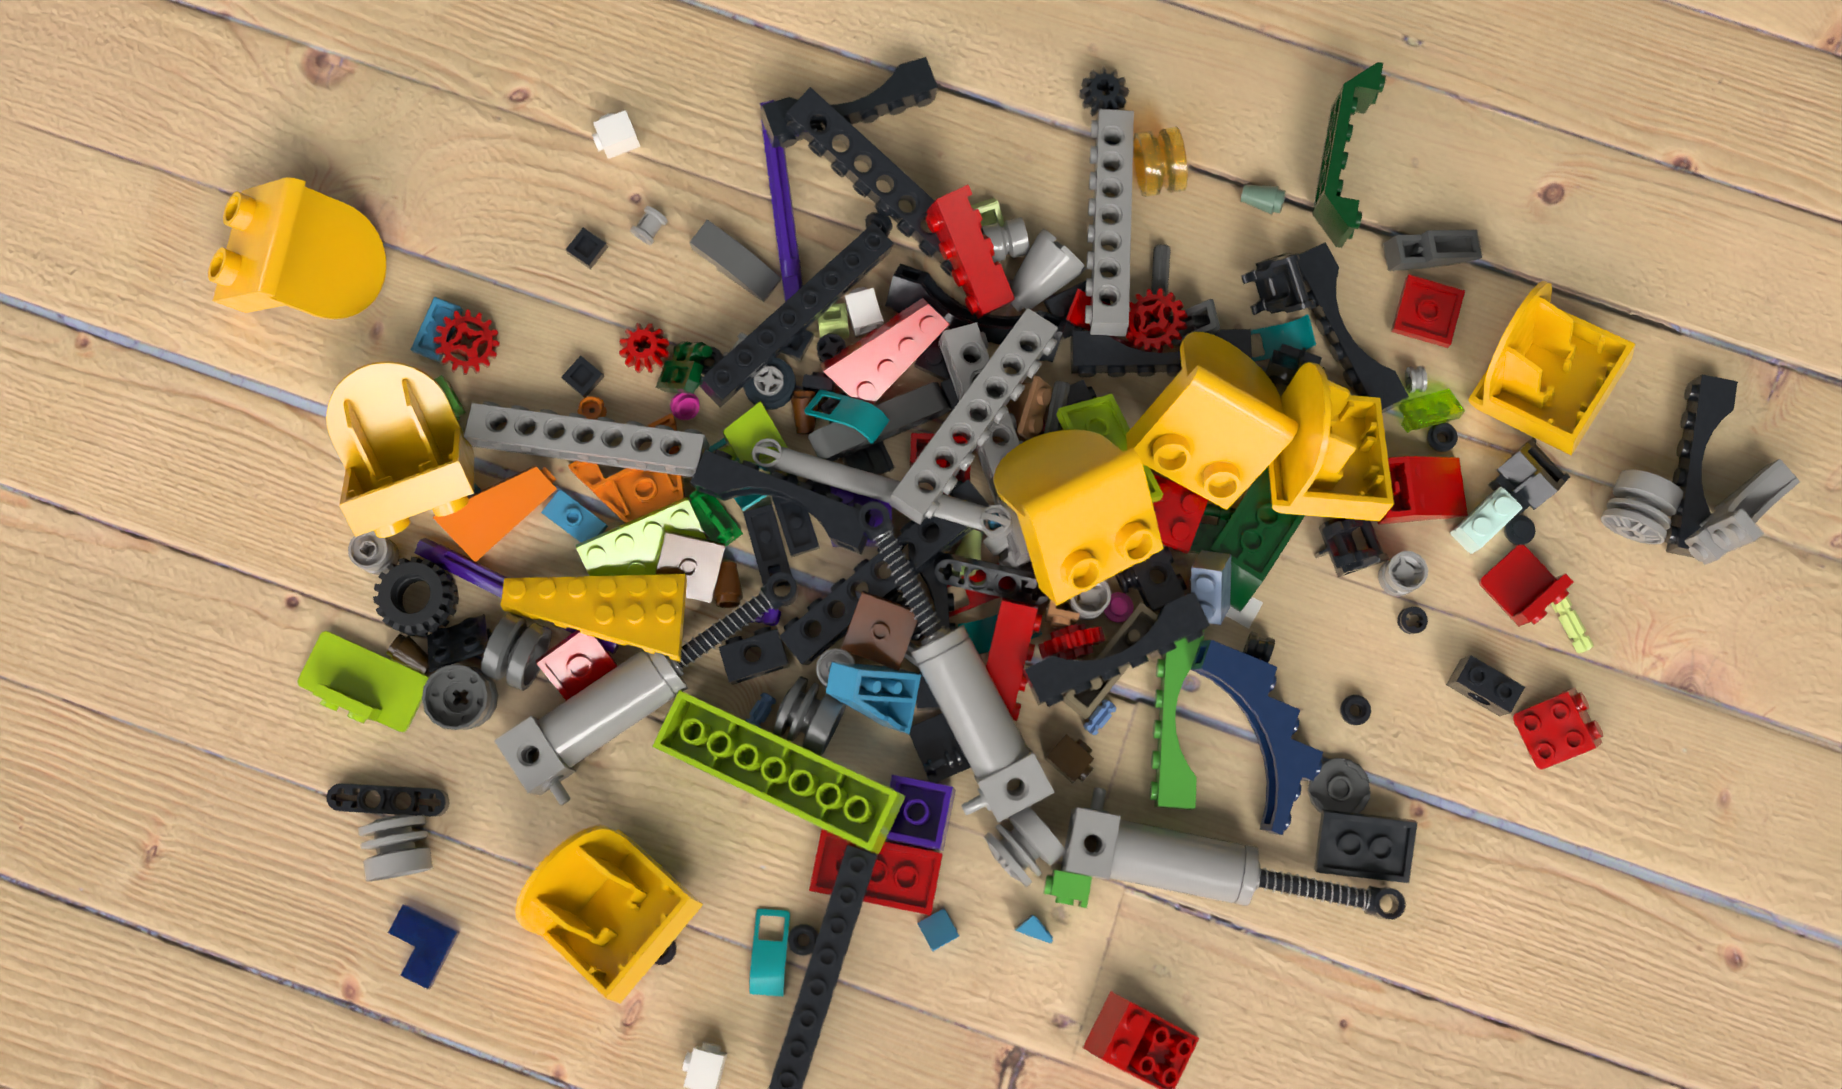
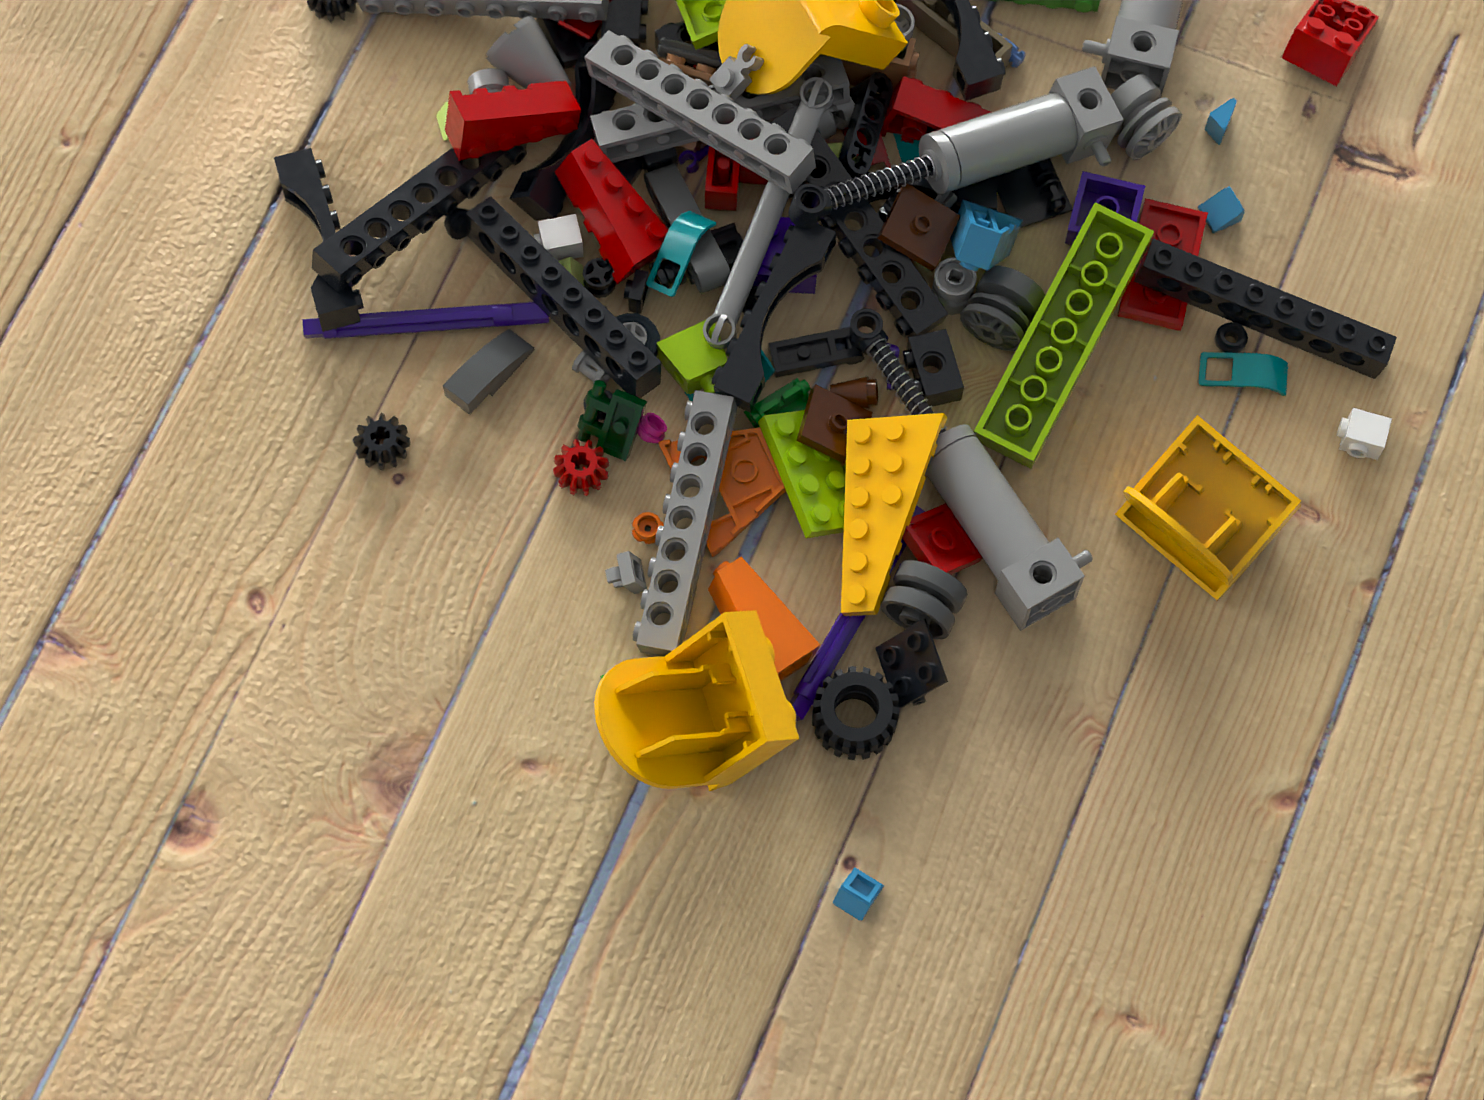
camera: 90 degrees left, 10 degrees down
(263, 609) = (857, 894): none -> dark azure slope
(297, 253) = (438, 841): yellow plate -> none
(362, 683) = (947, 779): lime bracket -> none
(373, 553) = (803, 760): light grey wheel -> none
(388, 800) = (1077, 754): black beam -> none
(395, 847) = (1143, 731): light grey wheel -> none
(409, 654) = (917, 728): dark brown cone -> none
(431, 942) = (1233, 711): clear blue plate -> none
(437, 311) = (539, 692): dark azure plate -> none
(442, 697) = (986, 649): dark grey wheel -> none
(461, 329) = (559, 656): red gear -> none
(545, 395) = (628, 573): none -> light grey tile
(573, 517) = (774, 548): dark azure plate -> none
(582, 376) = (609, 534): black plate -> none
(586, 248) = (457, 526): black plate -> none
(615, 134) = (322, 489): white brick -> none
(649, 225) = (436, 458): light grey bush -> none
(673, 177) = (393, 444): none -> black gear
(761, 710) = (989, 367): medium blue piece -> none
(796, 524) = (792, 322): black plate -> none
(804, 423) = (665, 308): reddish brown cone -> none
(1015, 444) = (733, 75): none -> light grey plate
(1068, 887) = (1181, 83): bright green brick -> none
(1071, 759) = (1045, 71): dark brown brick -> none
(1072, 642) = (935, 58): red gear -> none

